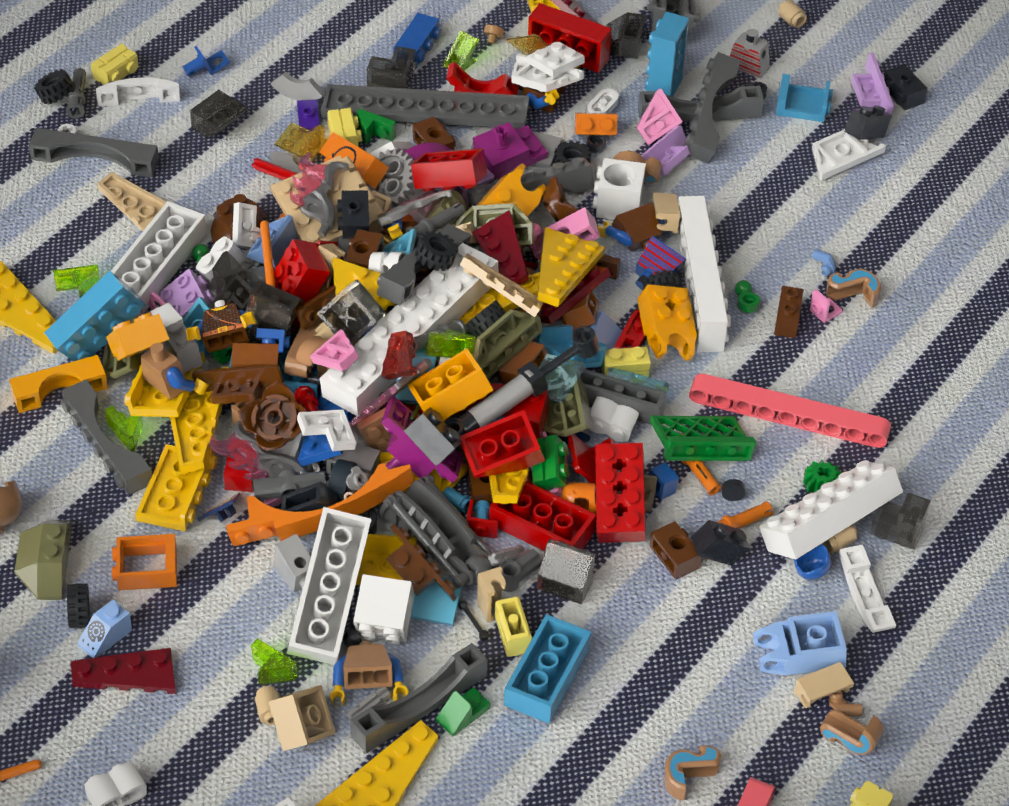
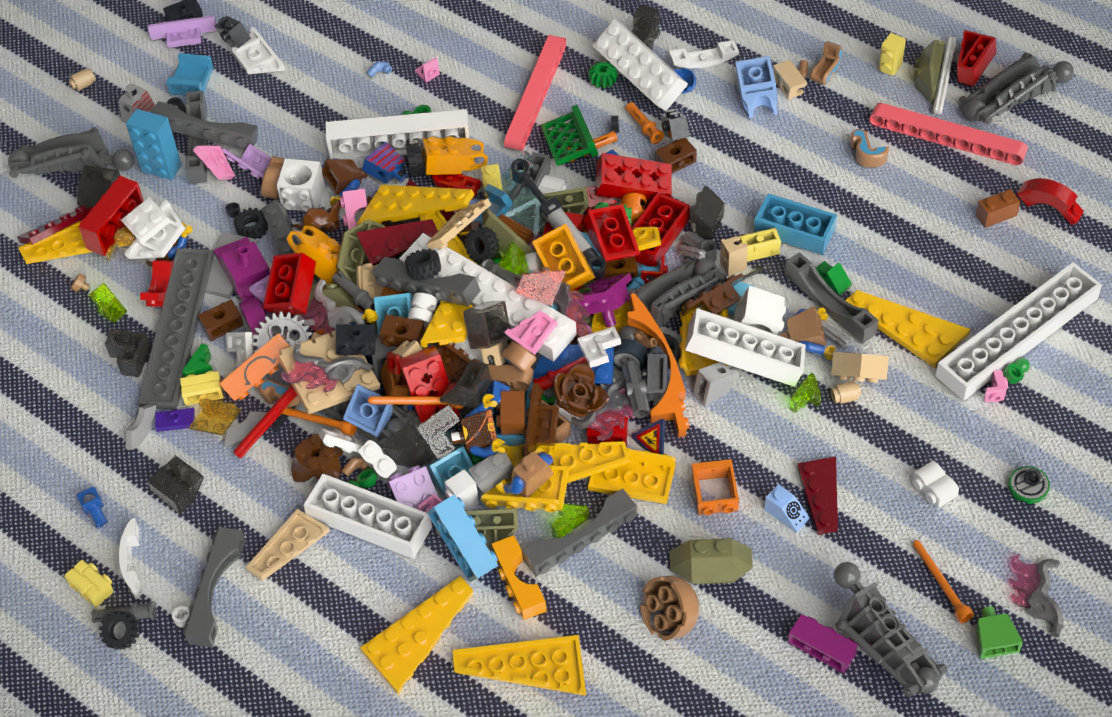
camera: 85 degrees left, 5 degrees up
(78, 278) = (390, 575): clear neon green slope -> none
(78, 605) = (769, 525): black tyre -> none
(137, 337) = (502, 490): light orange brick -> none
(352, 479) = (638, 335): light grey plate -> none
(420, 35) = (81, 339): blue brick -> none
(433, 436) = (611, 270): brick -> none
(595, 123) = (213, 205): orange brick -> none
(603, 102) = (186, 206): white plate -> none
(667, 208) = (331, 150): tan hinge -> none
(788, 312) = (436, 88): reddish brown brick -> none
(854, 283) = (404, 50): medium nougat animal -> none

